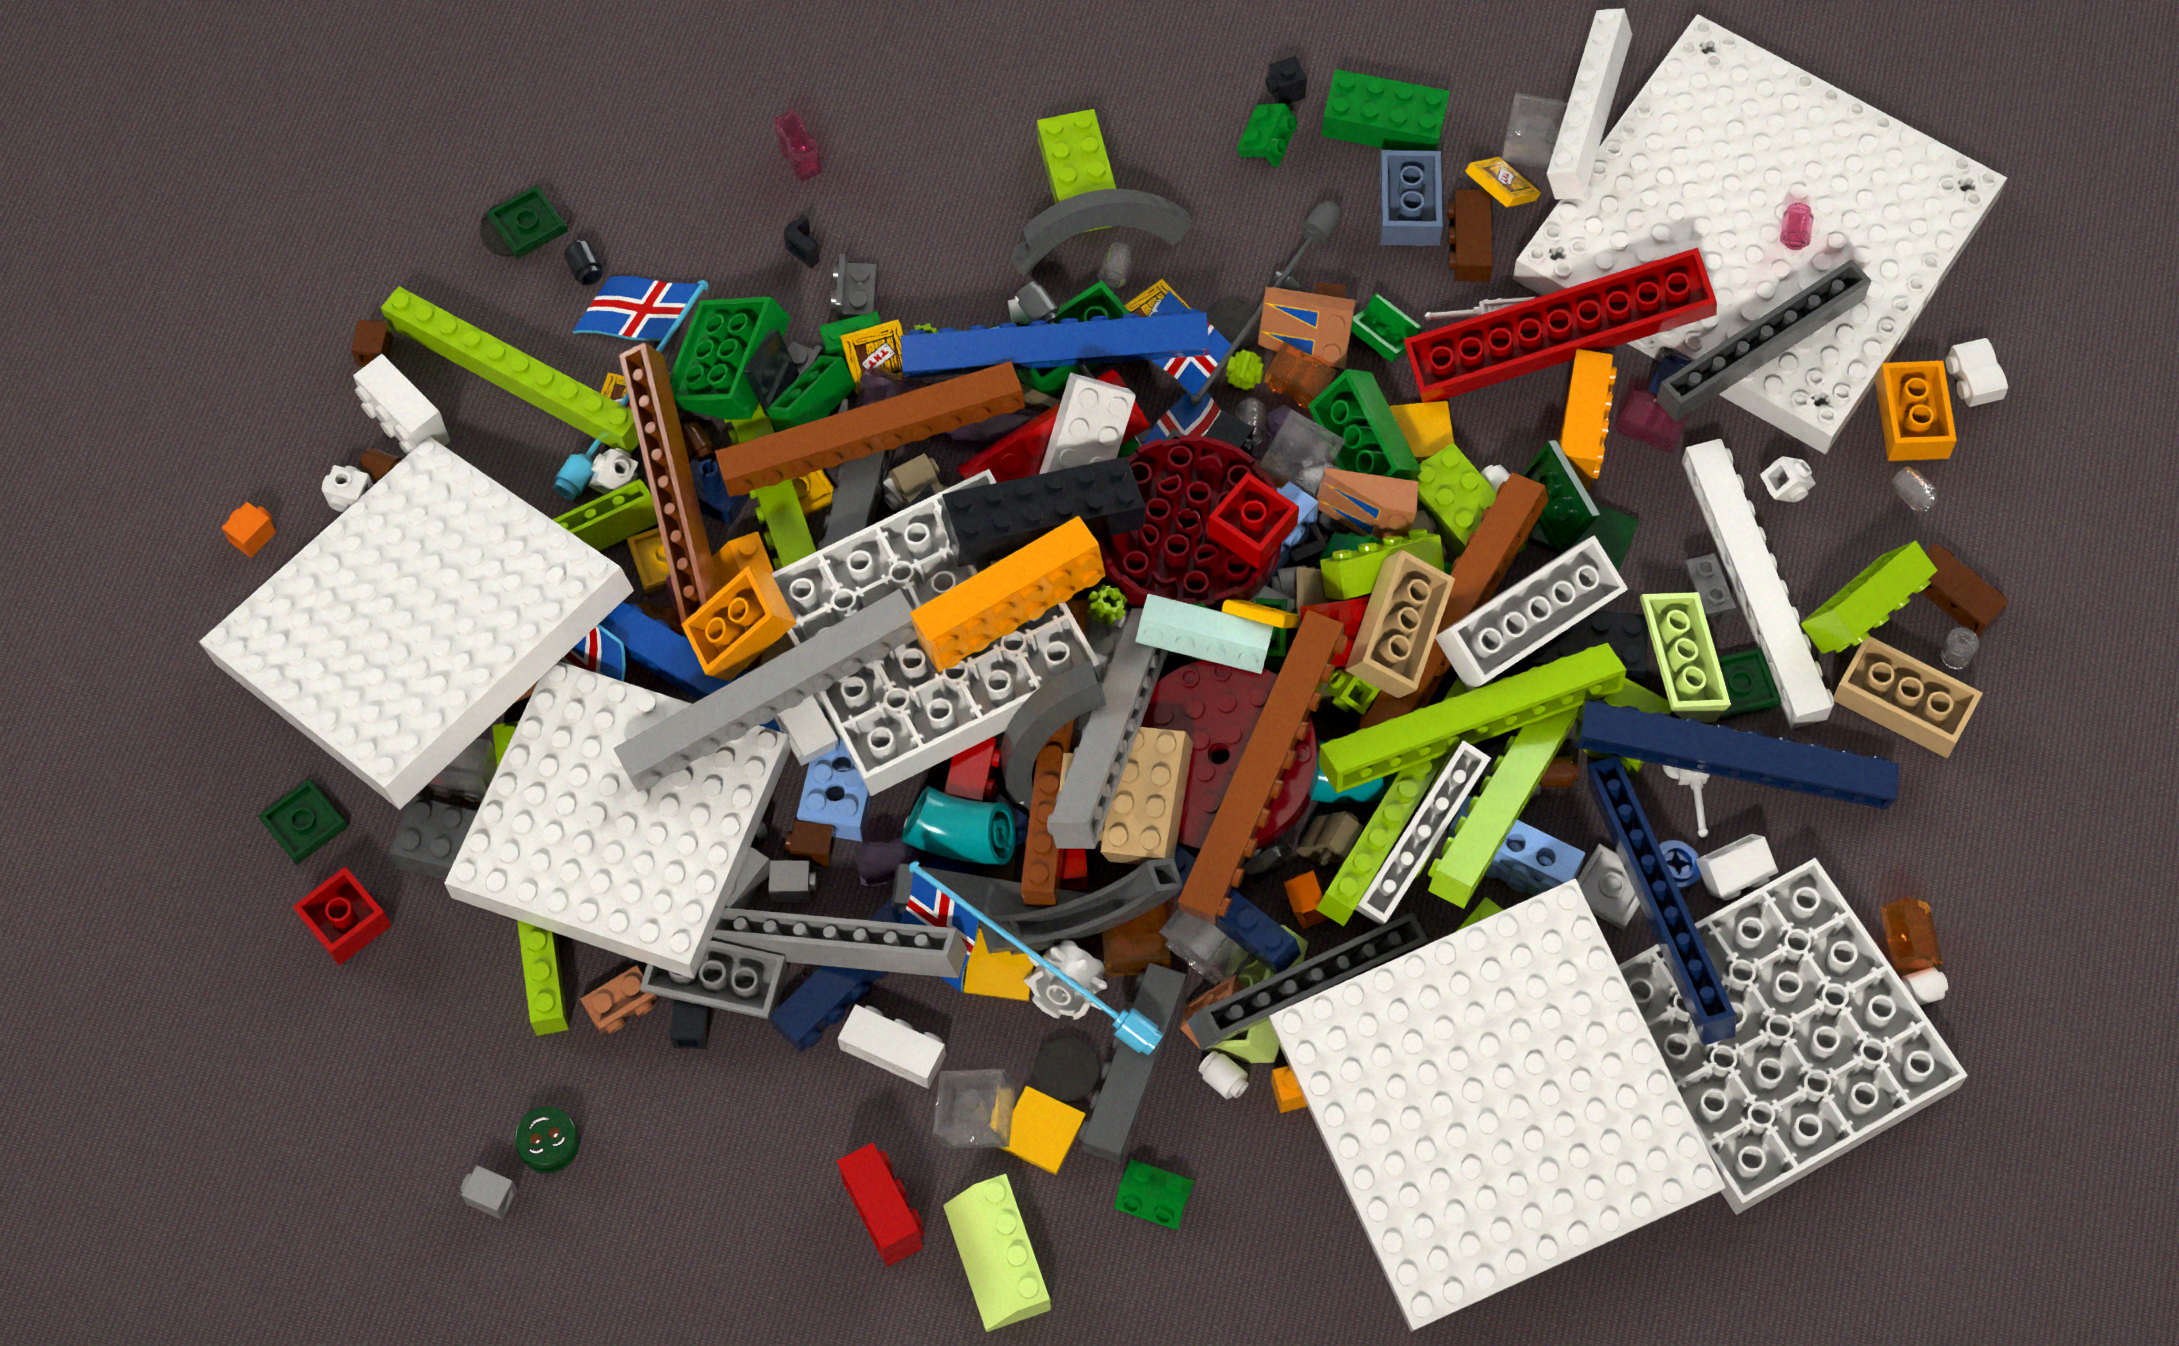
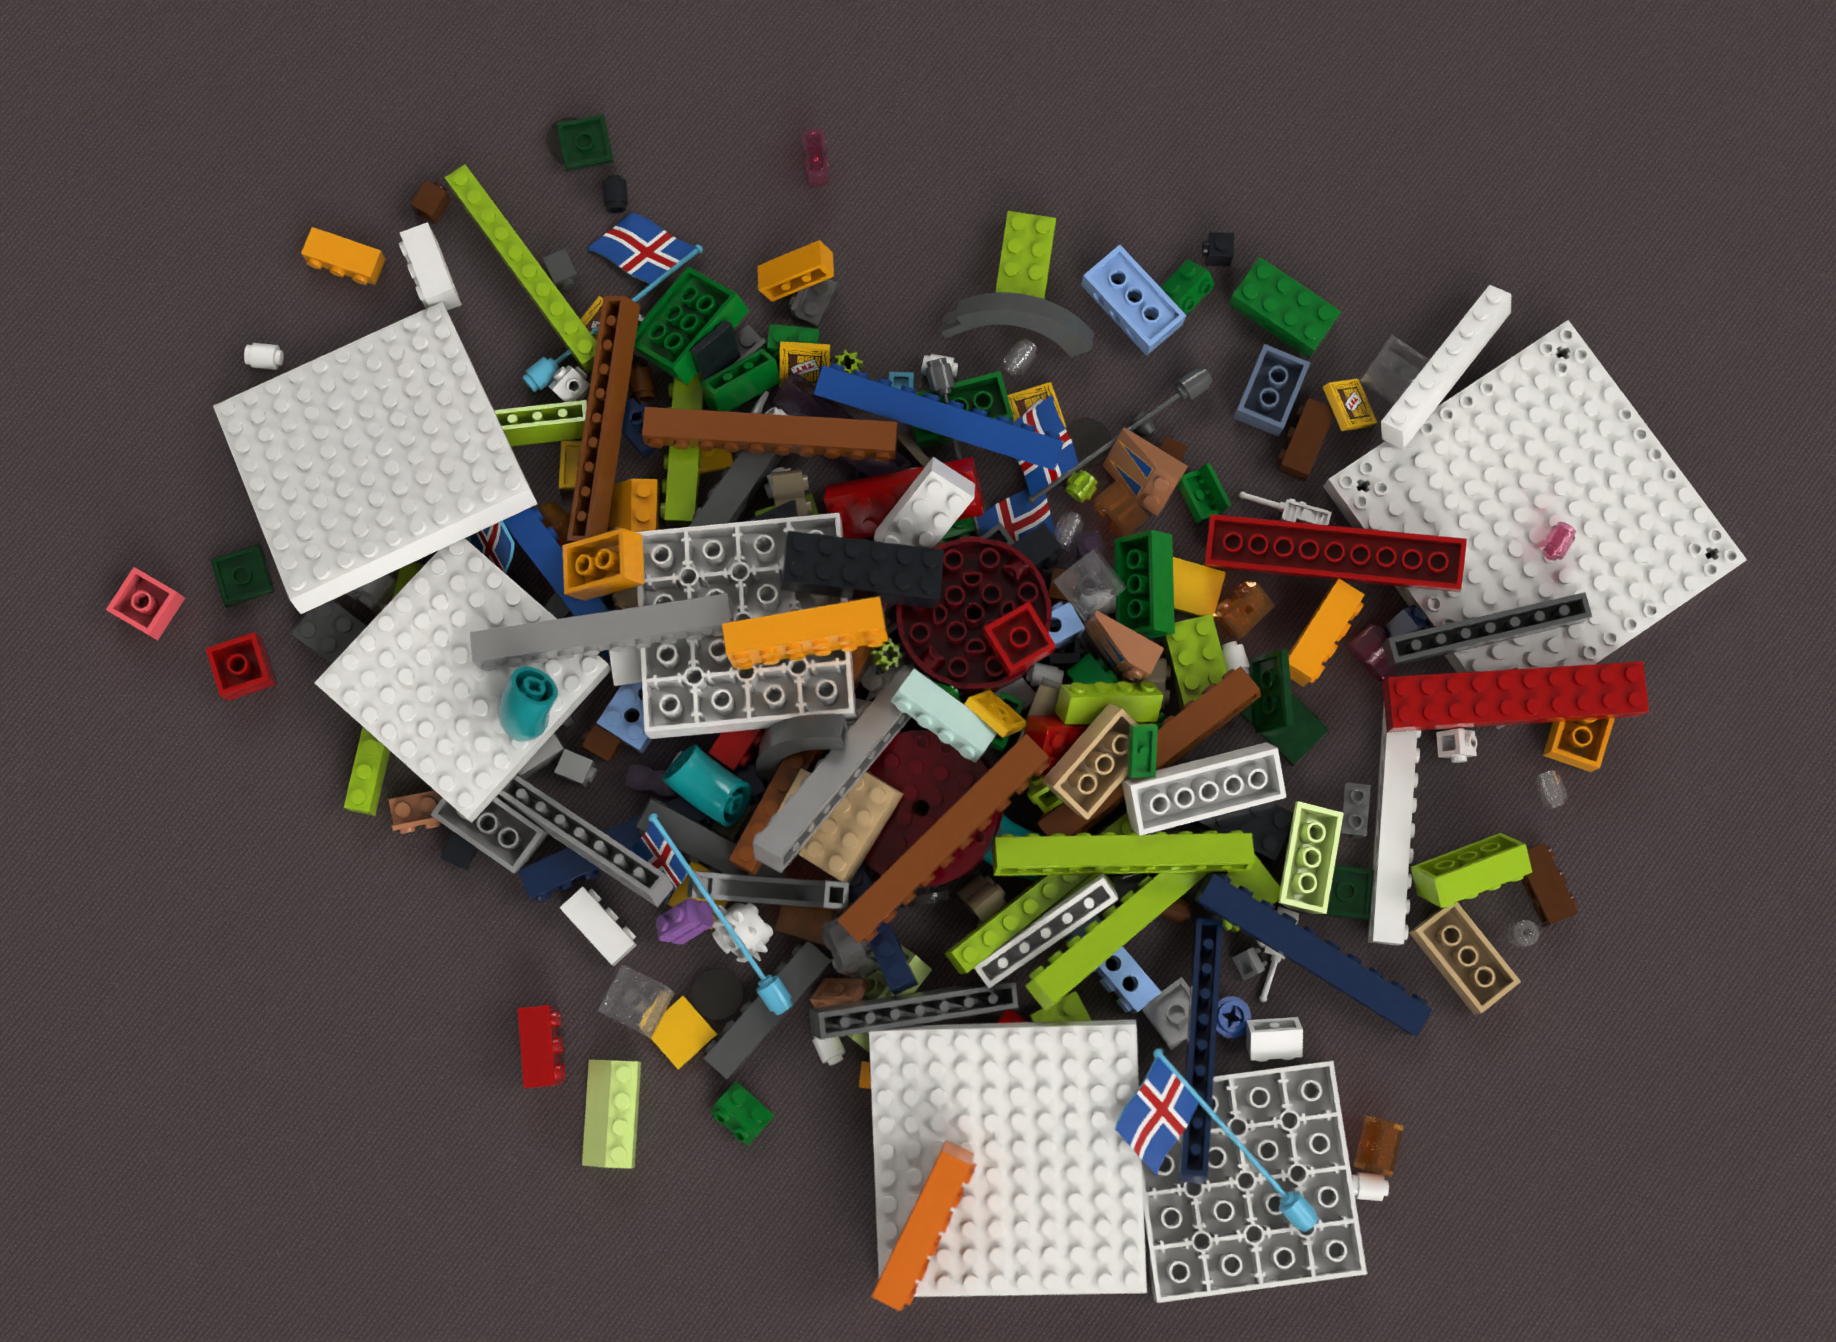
camera: 15 degrees right, 15 degrees up
(198, 889) = (145, 603): none -> coral brick
(237, 573) = (263, 356): none -> white brick
(249, 528) = (285, 322): orange brick -> none
(291, 435) = (343, 256): none -> light orange brick
(345, 487) = (367, 318): white brick -> none
(378, 463) = (399, 306): reddish brown brick -> none
(488, 1192) = (270, 920): light grey brick -> none
(547, 1140) = (326, 897): dark green head -> none
(556, 355) = (561, 270): none -> dark grey brick
(712, 800) = (527, 703): none -> teal brick
(800, 242) = (783, 236): black bracket -> none
(825, 261) = (795, 270): none -> light orange brick
(994, 994) = (684, 921): none -> medium lavender brick
(1216, 162) = (1138, 285): none -> light blue brick
(1305, 895) = (944, 934): orange brick -> none
(1431, 1205) = (921, 1232): none -> orange brick
(1445, 588) = (1142, 750): none -> green plate
(1485, 429) = (1243, 609): none -> clear orange brick
(1649, 971) = (1160, 1115): none -> flag
(1668, 798) = (1249, 963): none -> light grey tile
(1827, 398) = (1515, 696): none -> red brick
(1977, 372) = (1652, 723): white brick -> none

